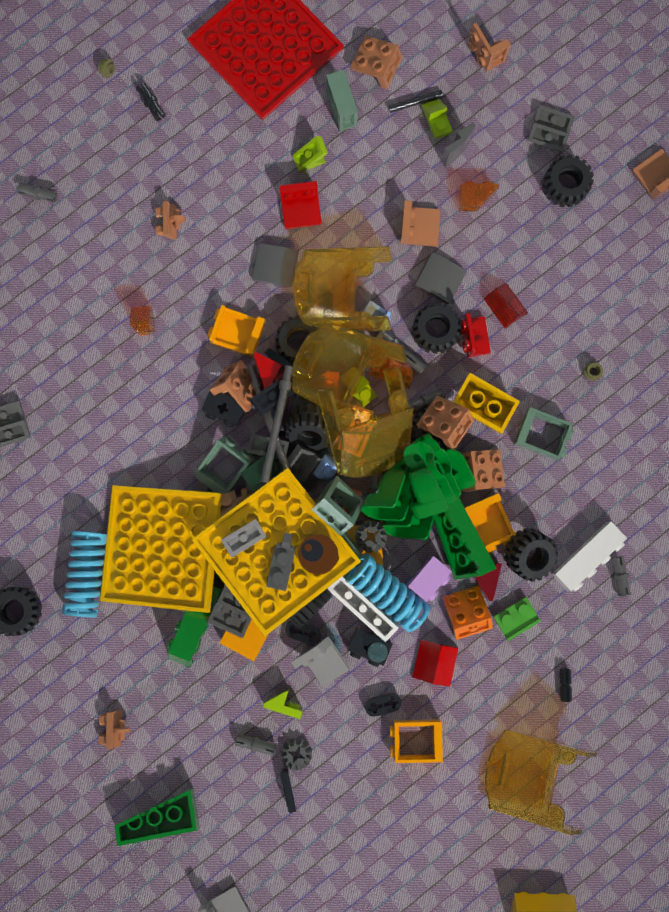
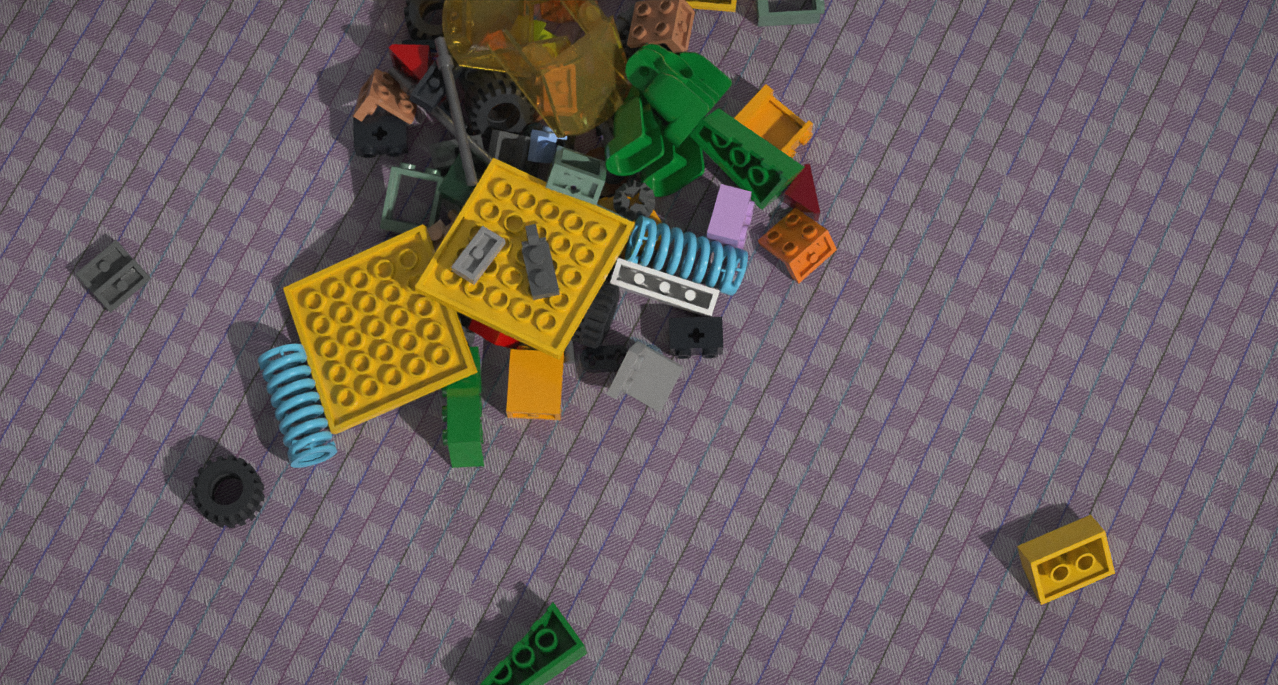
camera: 20 degrees left, 10 degrees down
(114, 729) = (424, 579): nougat hips -> none
(142, 320) = (231, 76): clear orange slope -> none
(229, 614) = (504, 363): dark grey slope -> none
(236, 331) = (354, 41): light orange panel -> none
(255, 744) = (609, 518): dark grey pin -> none
(277, 704) = (614, 456): lime slope -> none
(288, 790) = (677, 553): black tile -> none
(305, 751) = (676, 516): dark grey gear -> none
(318, 554) = (578, 235): reddish brown tile -> none
(377, 652) = (707, 332): clear light blue plate -> none
(381, 700) = (741, 395): black beam -> none
(435, 663) = (786, 320): red slope -> none
(437, 755) = (835, 413): light orange window -> none
(486, 469) = (740, 65): nougat bracket -> none
(516, 618) = (860, 225): bright green plate -> none
(524, 775) = (959, 399): clear yellow windscreen -> none
(542, 560) = (856, 131): black tyre -> none
(565, 689) = (955, 271): black piece -> none
(589, 556) = (912, 111): white brick -> none
(621, 576) = (962, 118): dark grey pin -> none

